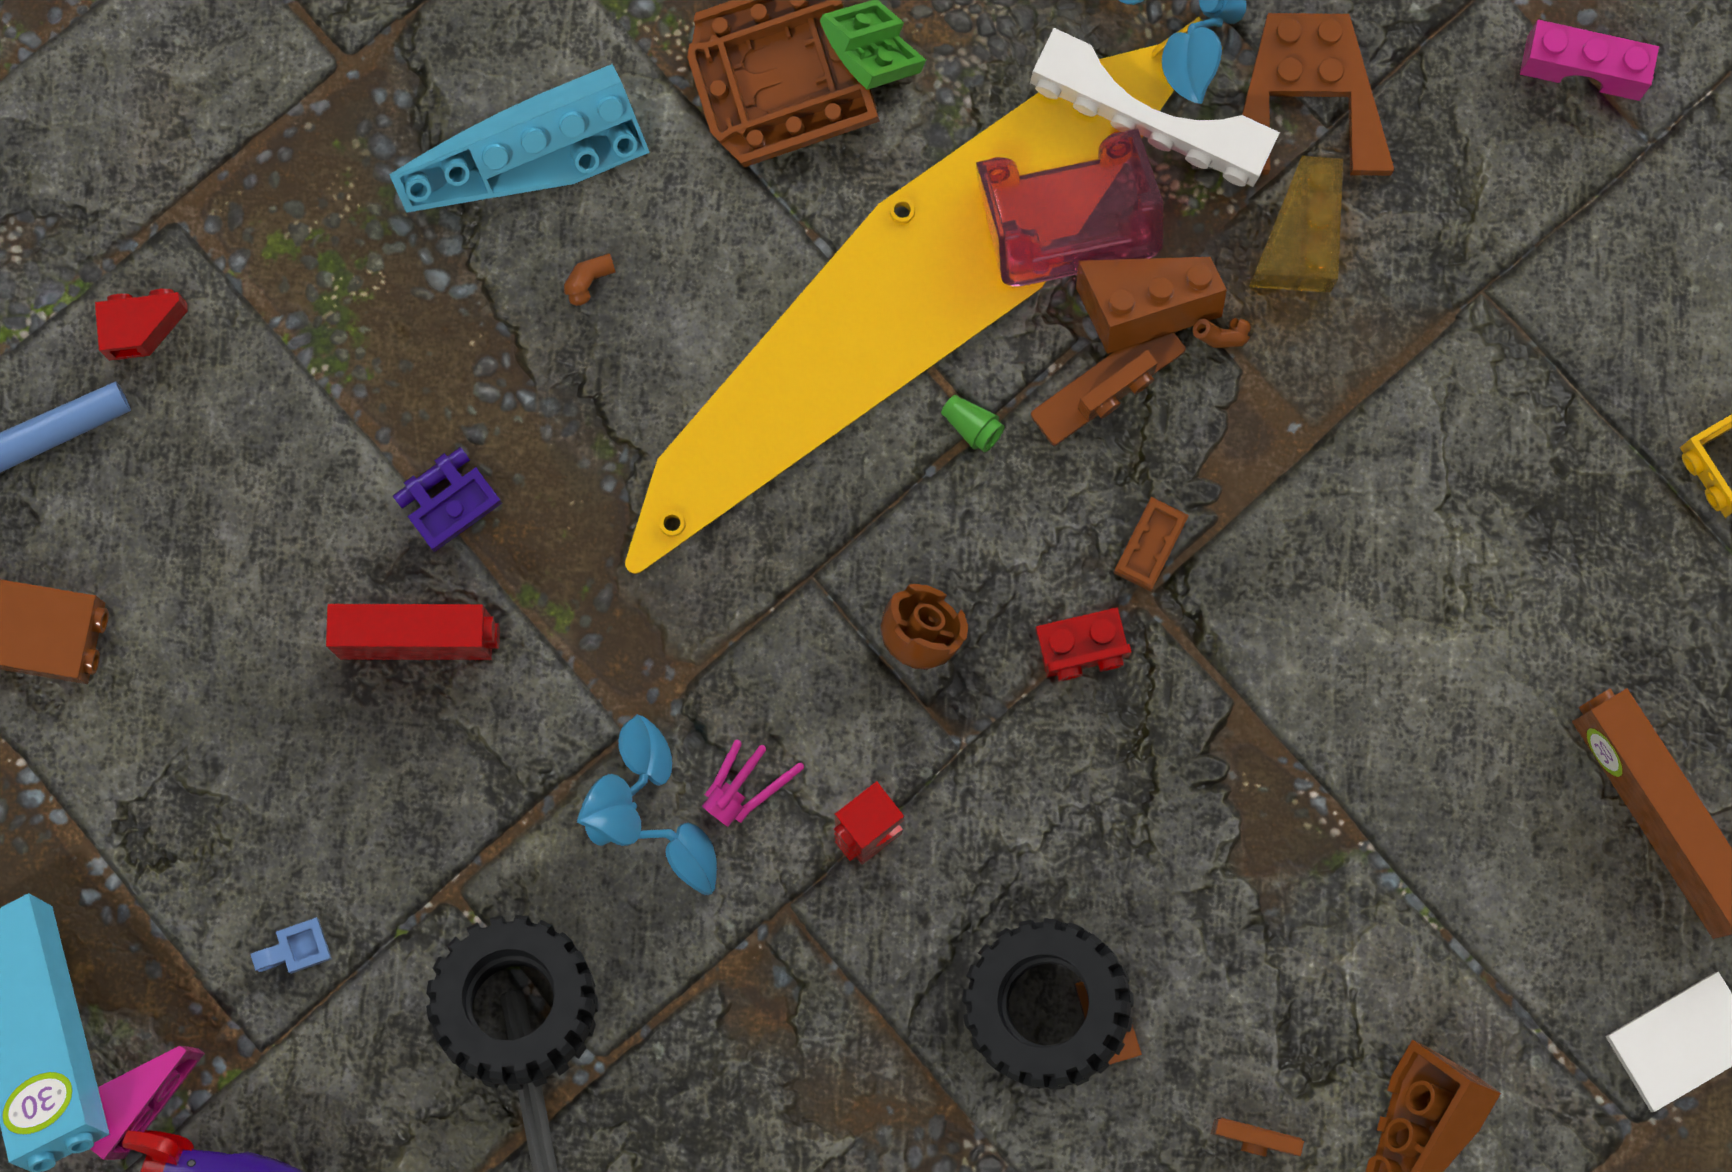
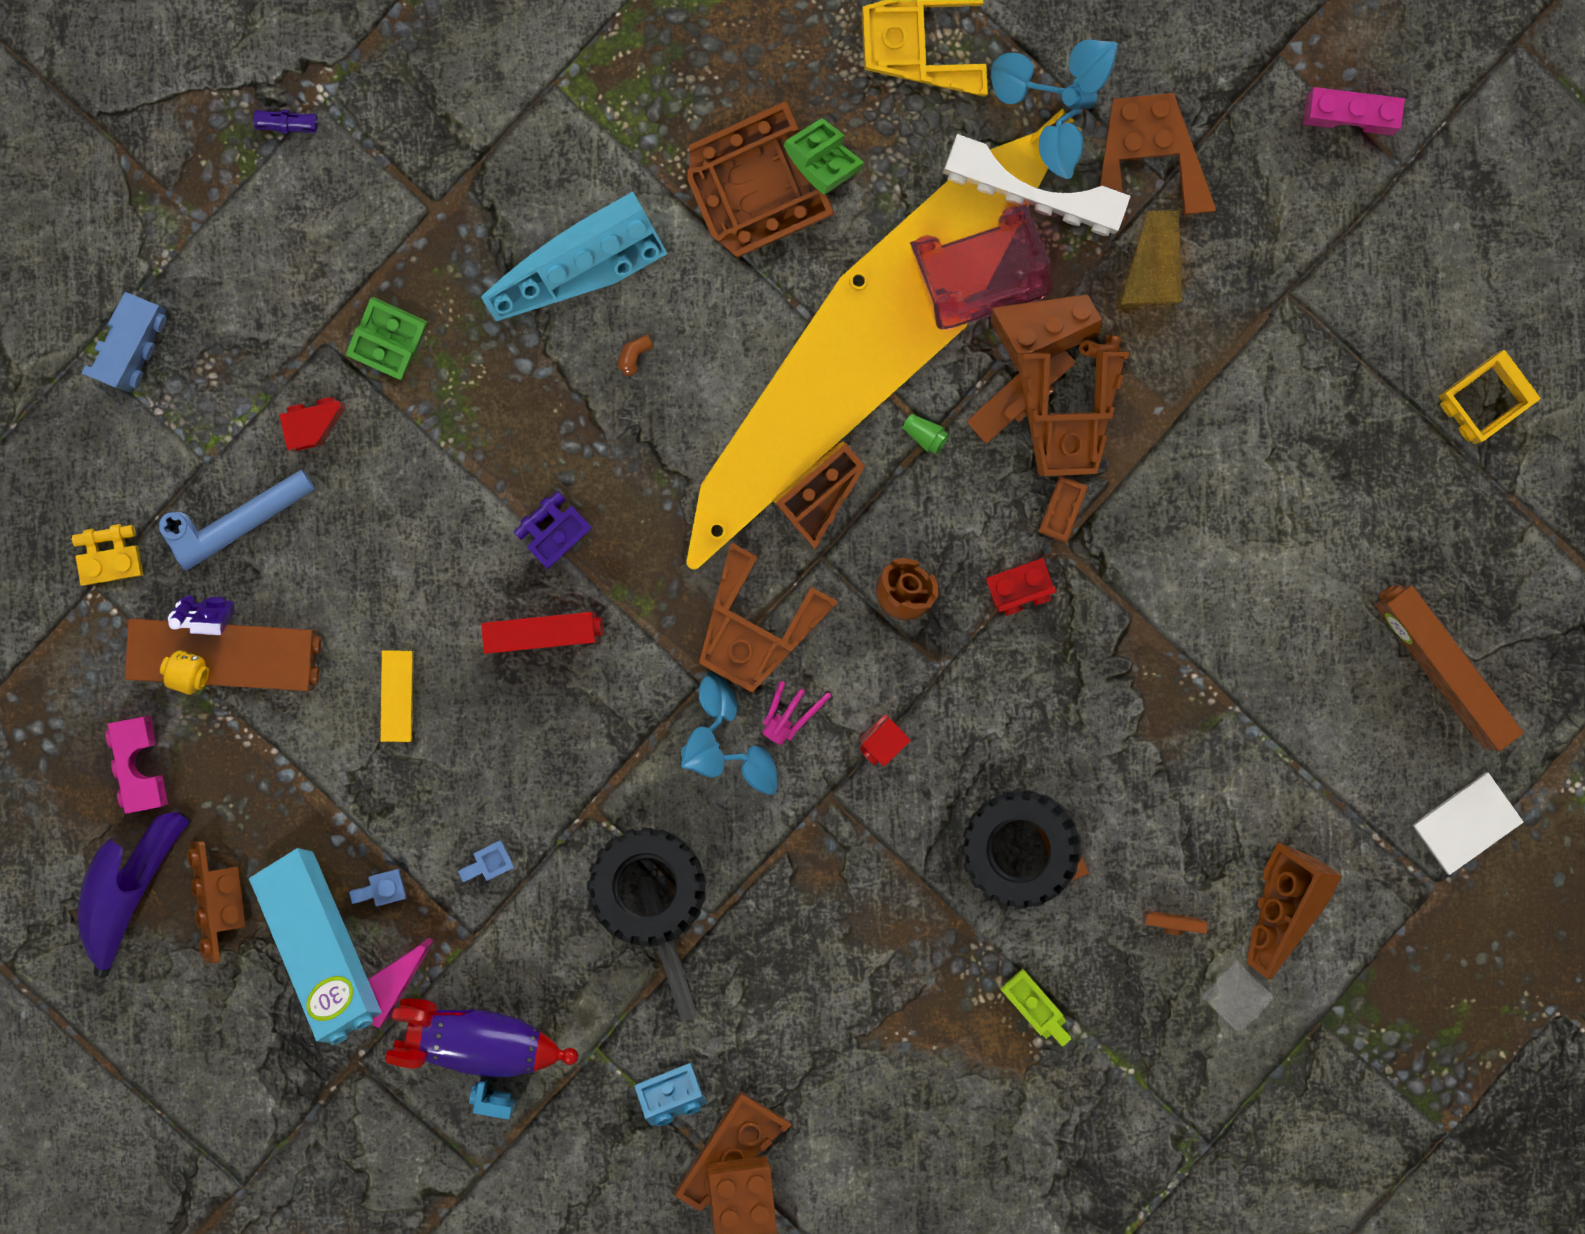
camera: 15 degrees left, 10 degrees up
(144, 970) = (383, 887): none -> medium blue plate
(201, 703) = (397, 696): none -> yellow tile
(257, 223) = (387, 338): none -> bright green slope
(689, 689) = (742, 649): none -> dark orange wing
(817, 484) = (819, 492): none -> dark orange wedge
(1164, 449) = (1069, 440): none -> dark orange wing

